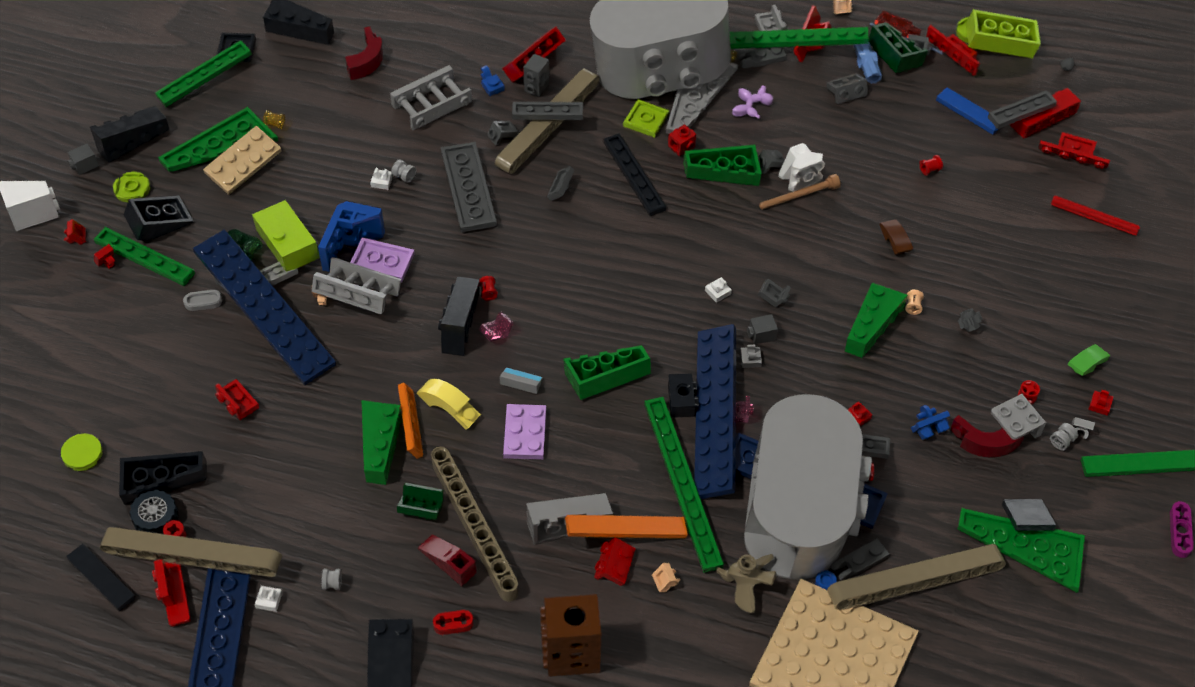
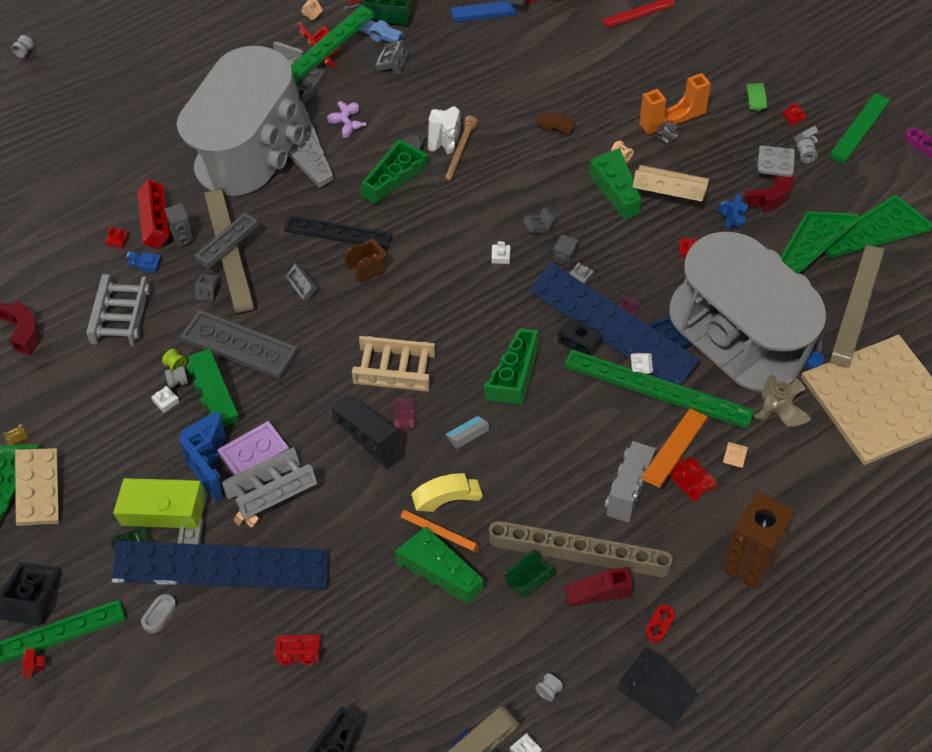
camera: 50 degrees left, 0 degrees up
(410, 197) = (211, 386): none -> green wedge
(417, 159) = (173, 359): none -> lime wheel
(488, 288) = (364, 395): red bush -> none
(496, 51) = (117, 238): none -> red tile
(524, 431) = (519, 460): lavender plate -> none
(528, 303) = (390, 378): none -> tan fence
(617, 207) = (368, 258): none -> reddish brown piece
(646, 118) = (291, 190): lime tile -> none
(682, 140) = (339, 177): red brick -> none
(693, 452) = (642, 362): none -> white tile
(907, 355) = (670, 183): none -> tan fence
(930, 165) = (510, 64): red bush -> none
(962, 498) = (814, 236): none -> green wing
(1016, 317) = (691, 105): none -> orange arch
(1028, 515) = (863, 207): tile -> none
(1029, 387) = (753, 144): red wheel -> none

